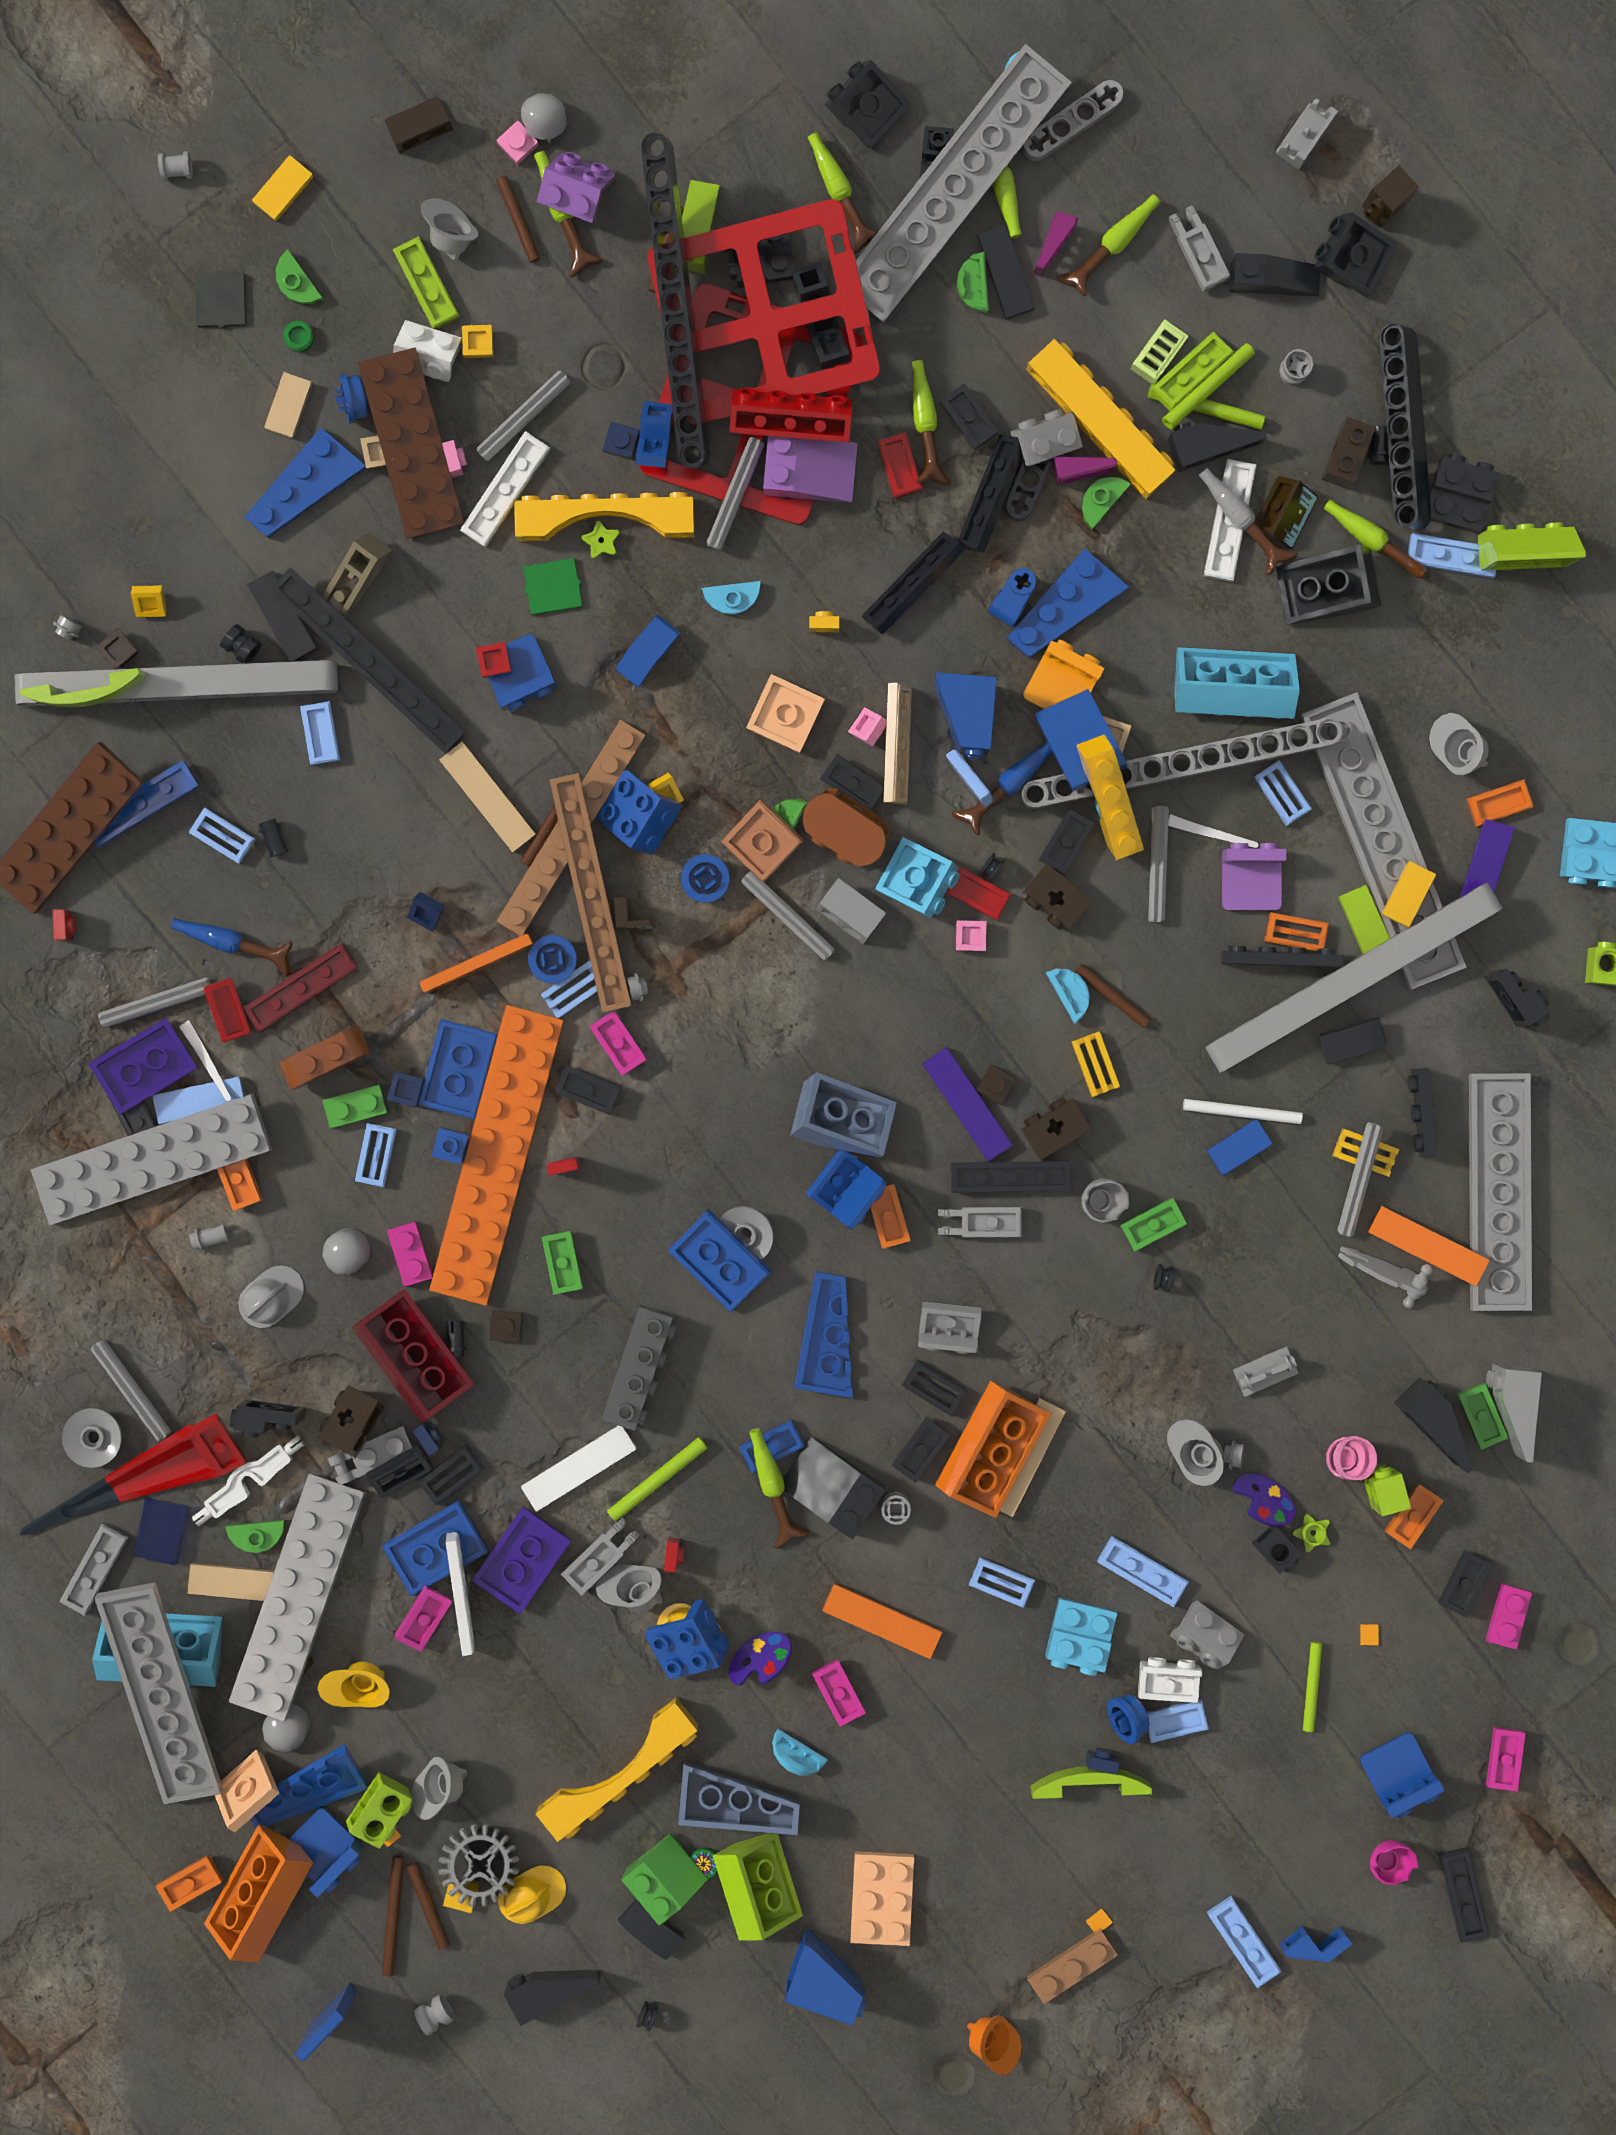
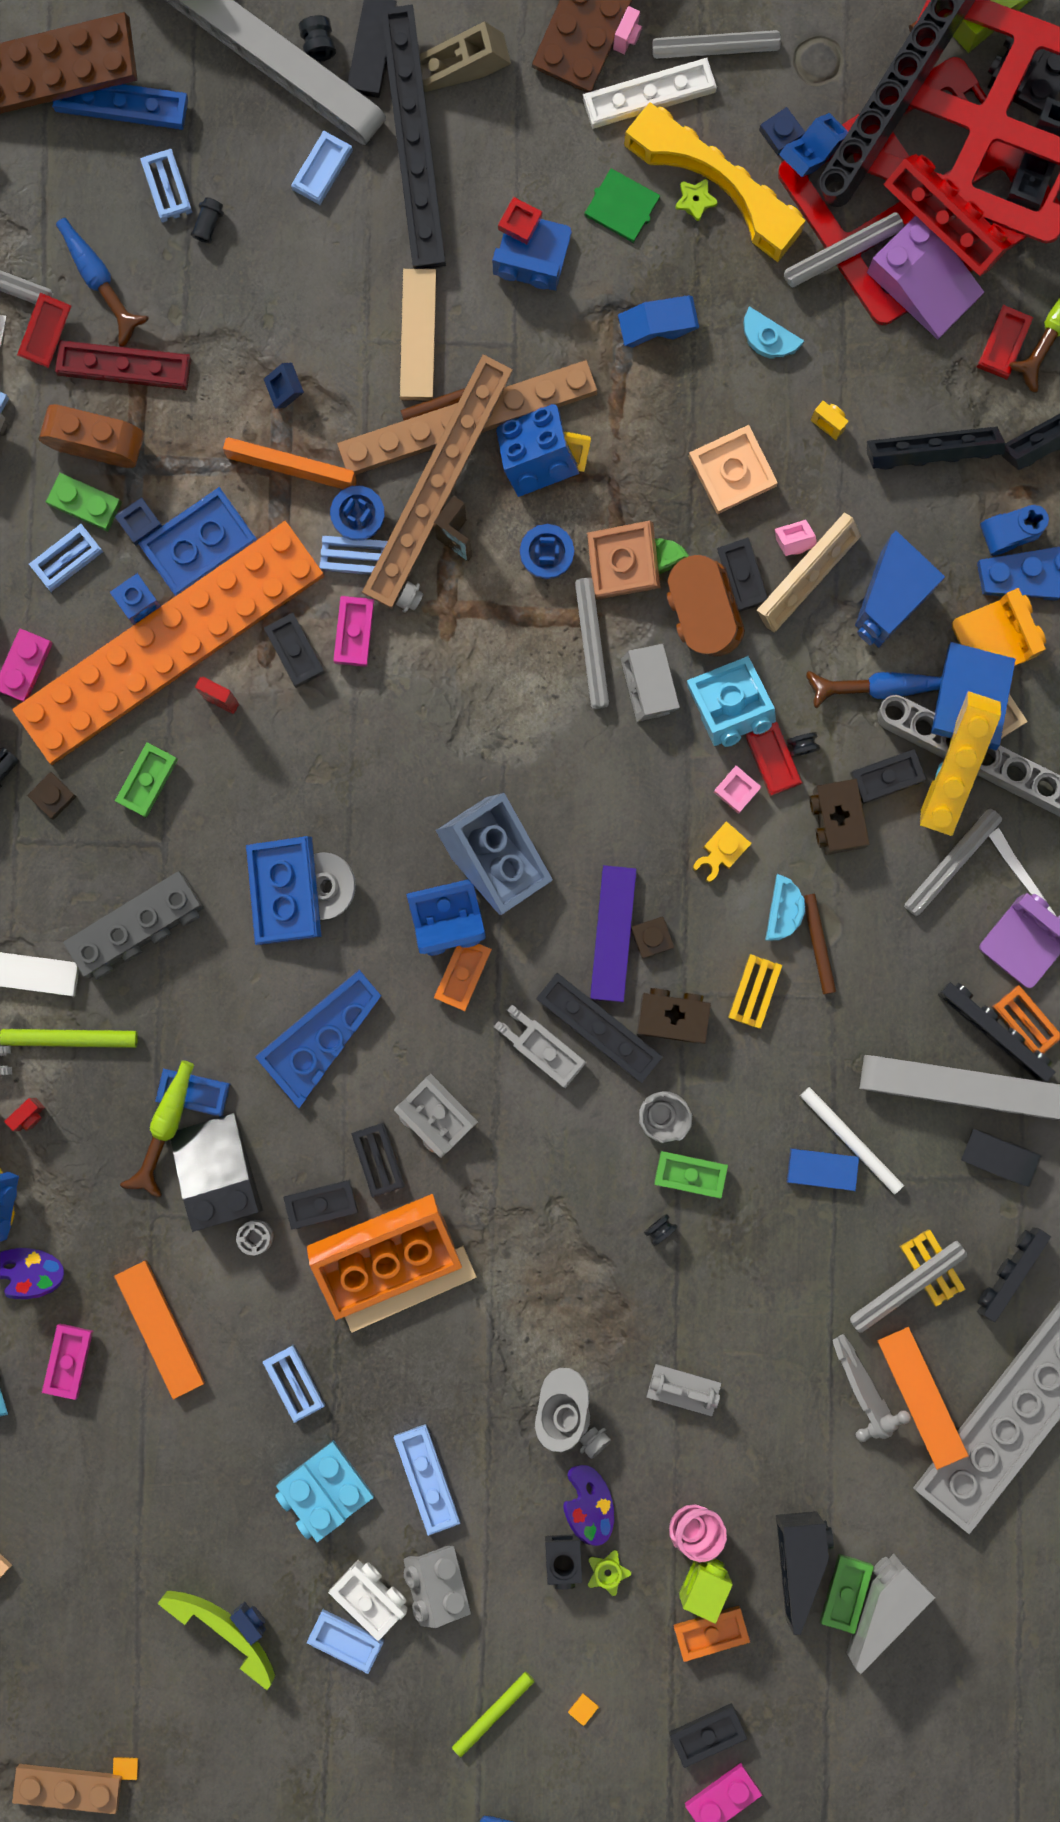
camera: 40 degrees right, 5 degrees down
(969, 778) = (848, 646): light blue tile -> none
(994, 982) = (724, 849): none -> yellow plate
(1128, 1718) = (303, 1602): blue piece -> none

